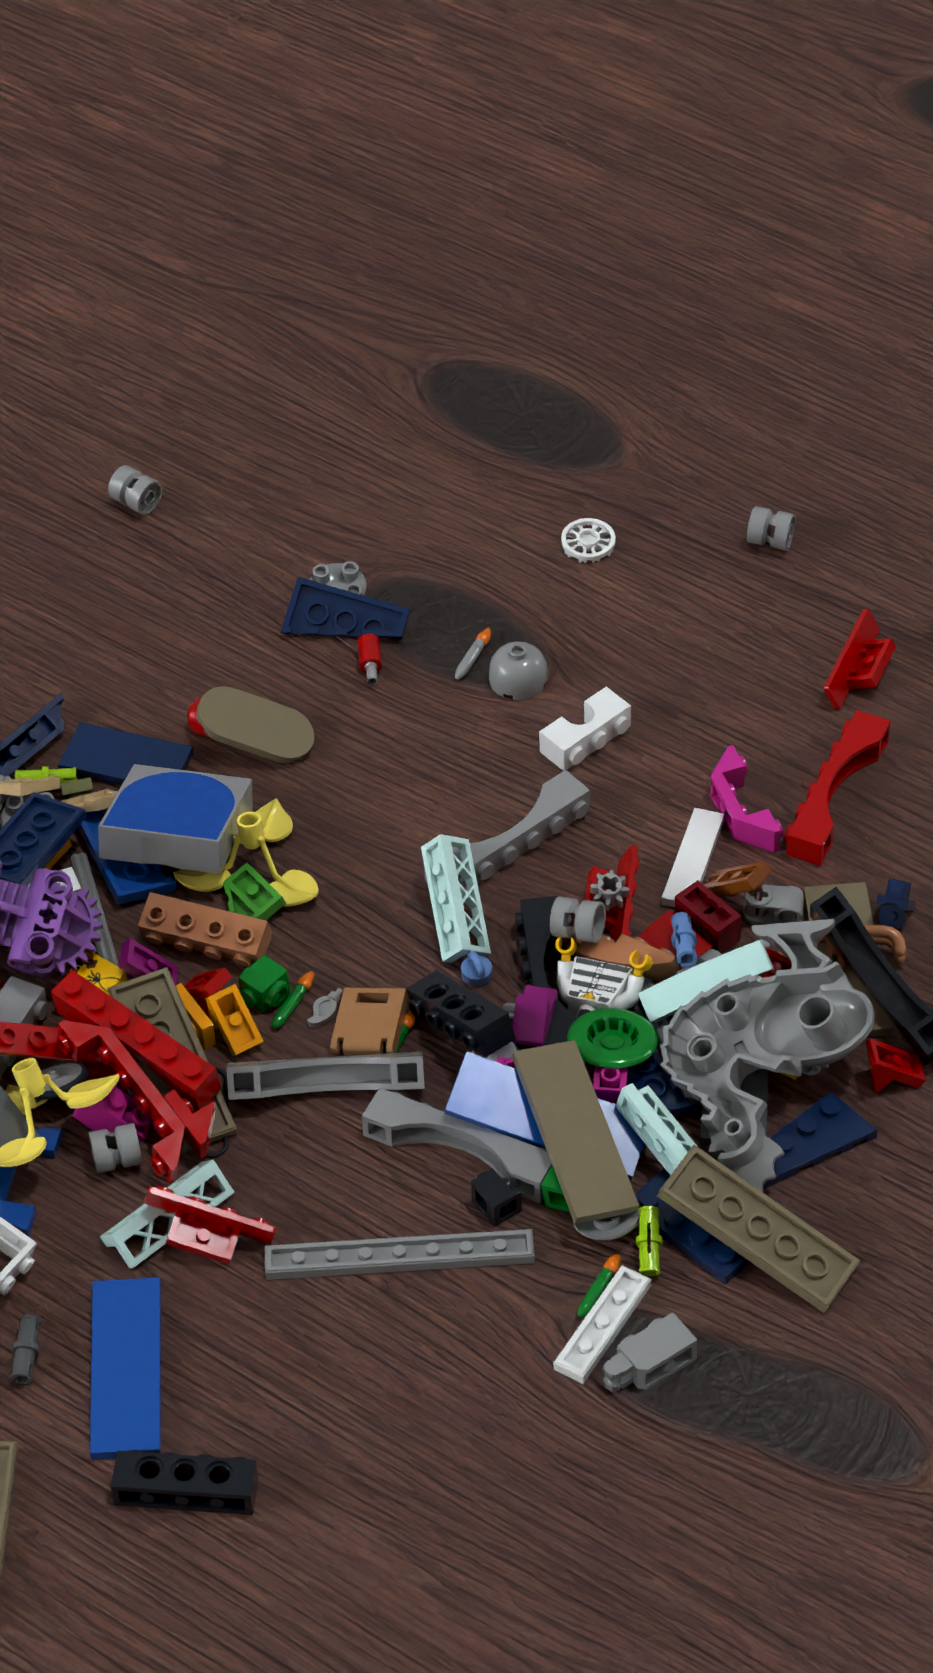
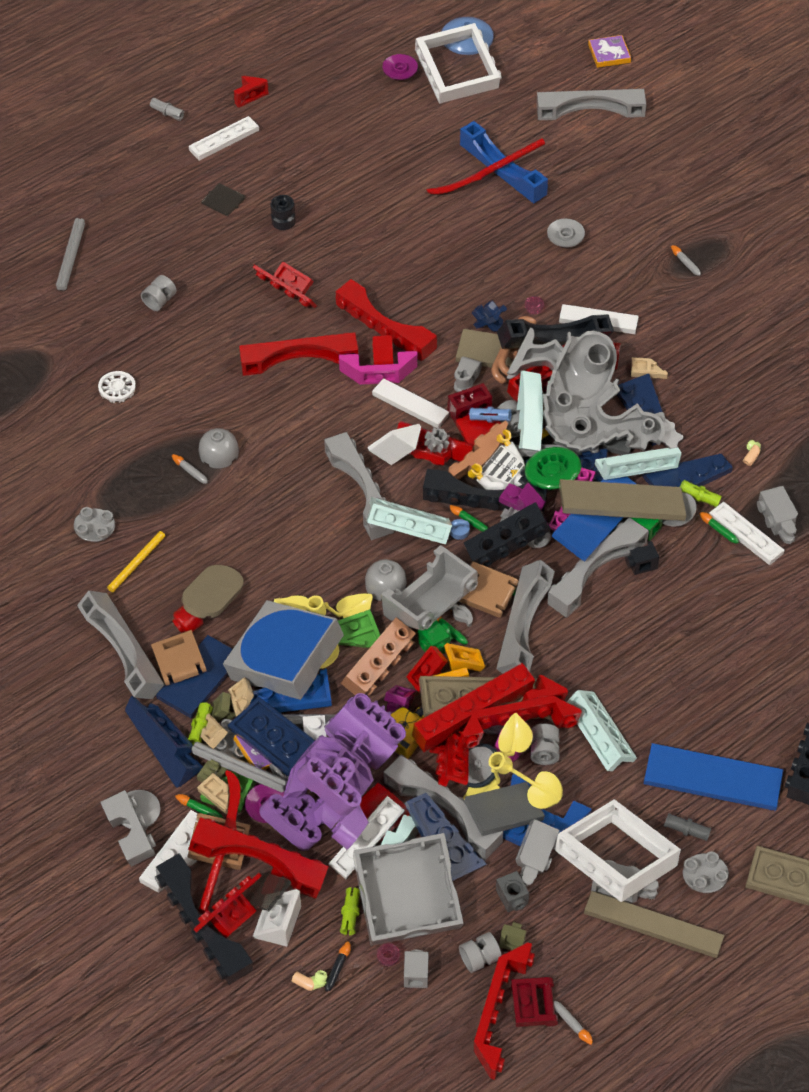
camera: 75 degrees left, 5 degrees up
(137, 727) = (178, 657): none -> medium nougat container
(183, 628) = (139, 673): none -> light grey arch
(205, 1228) = (628, 708): red bracket -> none
(294, 645) = (136, 561): none -> yellow bar
(320, 952) = (432, 593): none -> light grey windscreen
(332, 611) = (123, 529): dark blue wing -> none
(350, 908) = (384, 575): none -> light grey cylinder
(370, 656) = (170, 521): red piece -> none
(399, 1254) = (666, 620): light grey tile -> none
(509, 961) = (458, 511): none -> green piece
(569, 743) = (281, 413): white arch -> none
(572, 919) = (462, 457): light grey wheel -> none
(588, 848) = (396, 444): none -> white slope
(700, 668) = (262, 356): none -> red arch
(738, 879) = (450, 381): dark orange plate -> none
(758, 1228) = (711, 438): dark tan tile -> none
(765, 792) = (382, 350): none -> red slope
(780, 1300) = (754, 452): none -> light nougat arm
(809, 423) = (70, 254): none -> light grey axle
(891, 1127) = (643, 366): none -> tan tile

